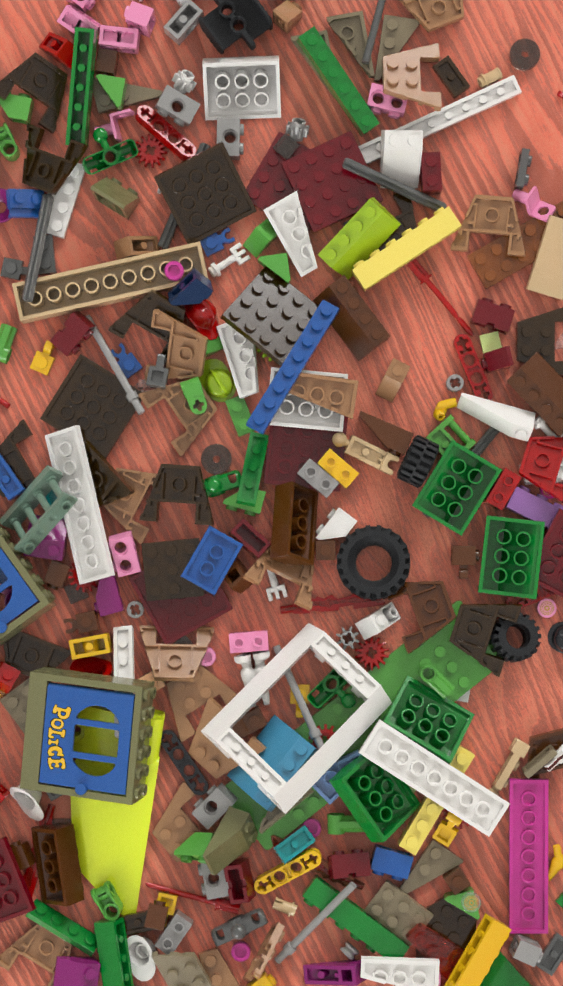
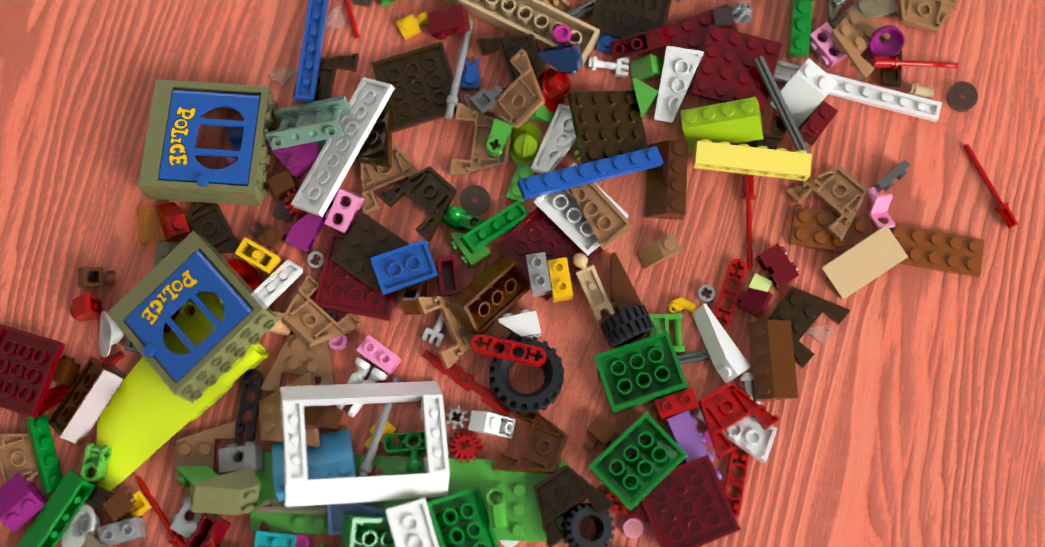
camera: 40 degrees right, 10 degrees down
(240, 223) = (640, 43): none -> dark red slope
(347, 559) = (509, 347): none -> red beam
(437, 63) = (891, 46): none -> magenta piece
(451, 73) = (893, 62): none -> red piece

